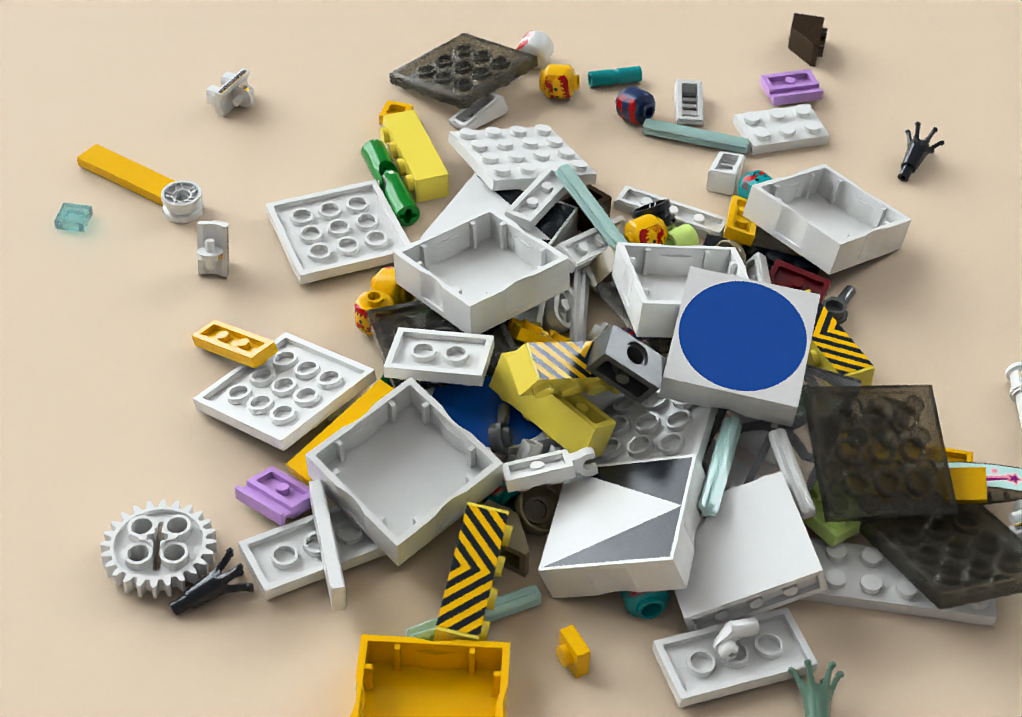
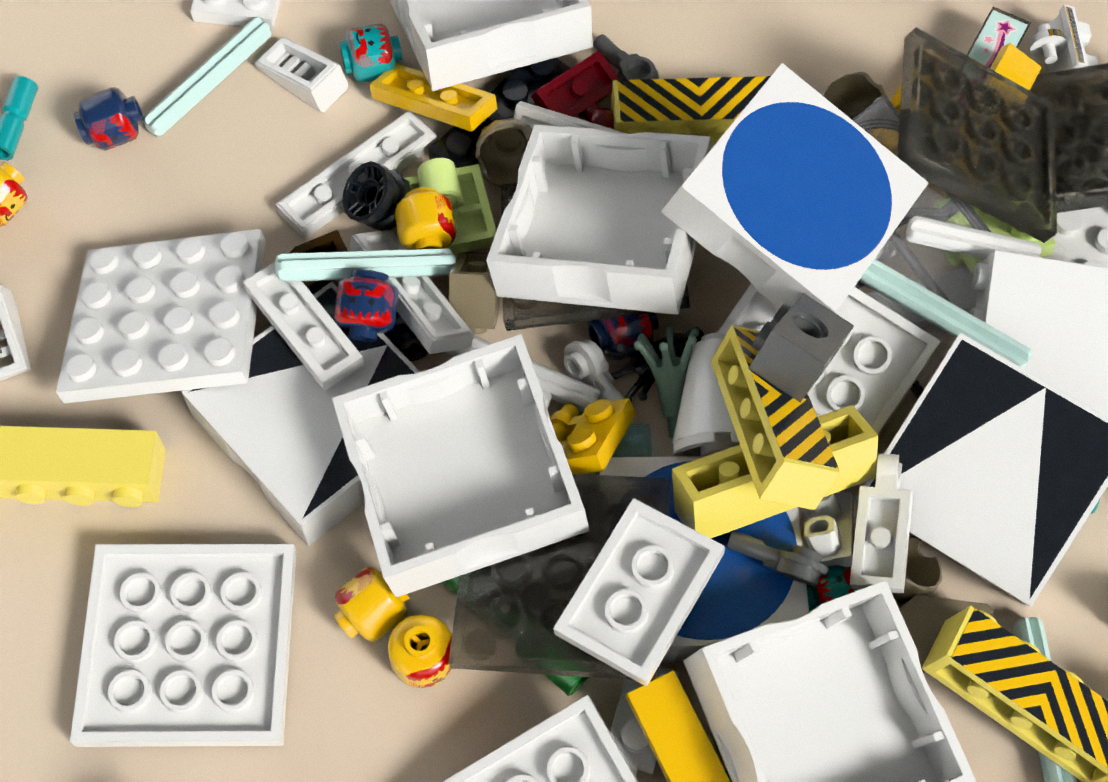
camera: 70 degrees left, 20 degrees up
(390, 182) = (111, 524): green piece -> none
(564, 214) = (366, 305): none -> dark blue head
(683, 90) = (111, 31): white slope -> none

